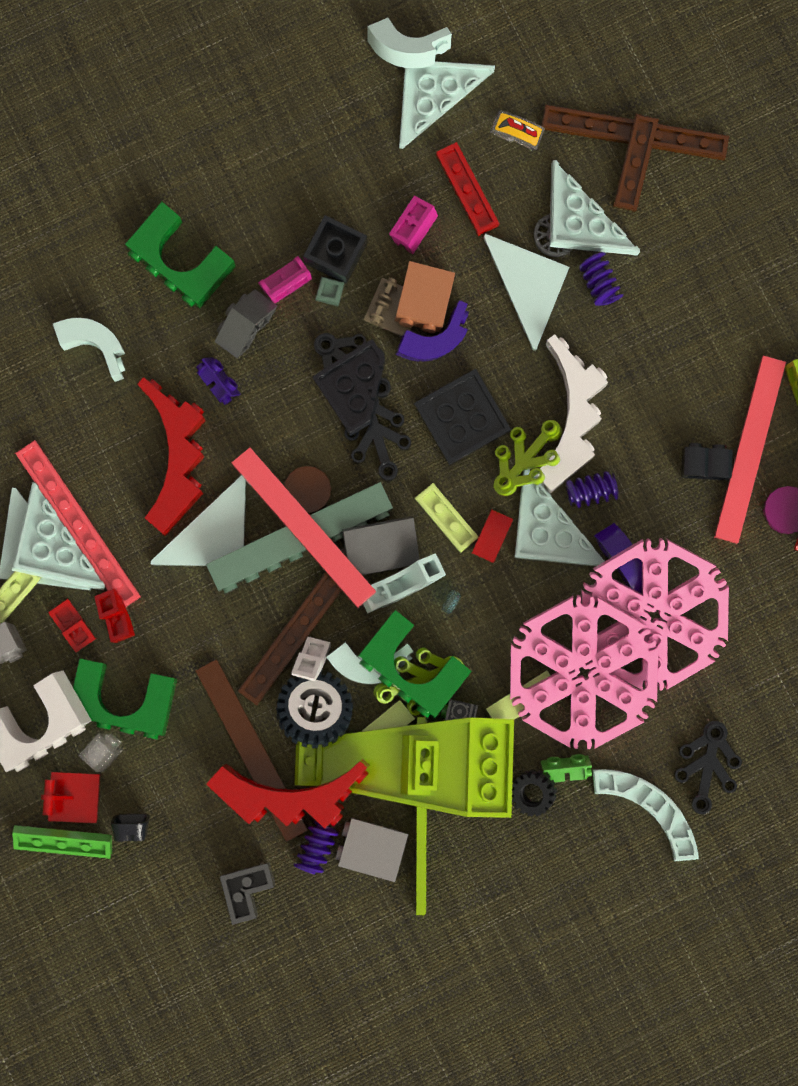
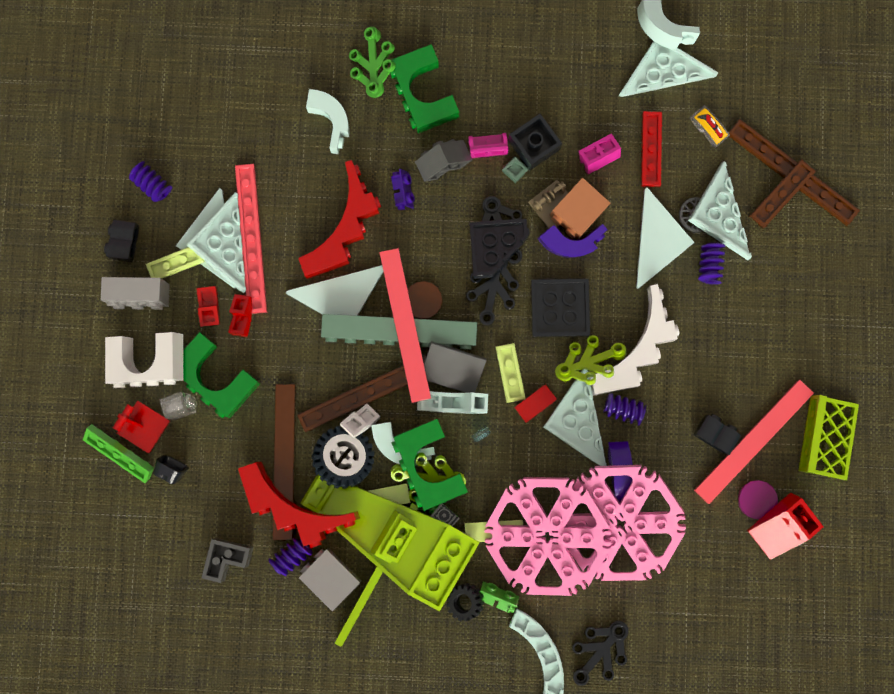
camera: 30 degrees right, 0 degrees up
(108, 257) = (373, 64): none -> bright green plant

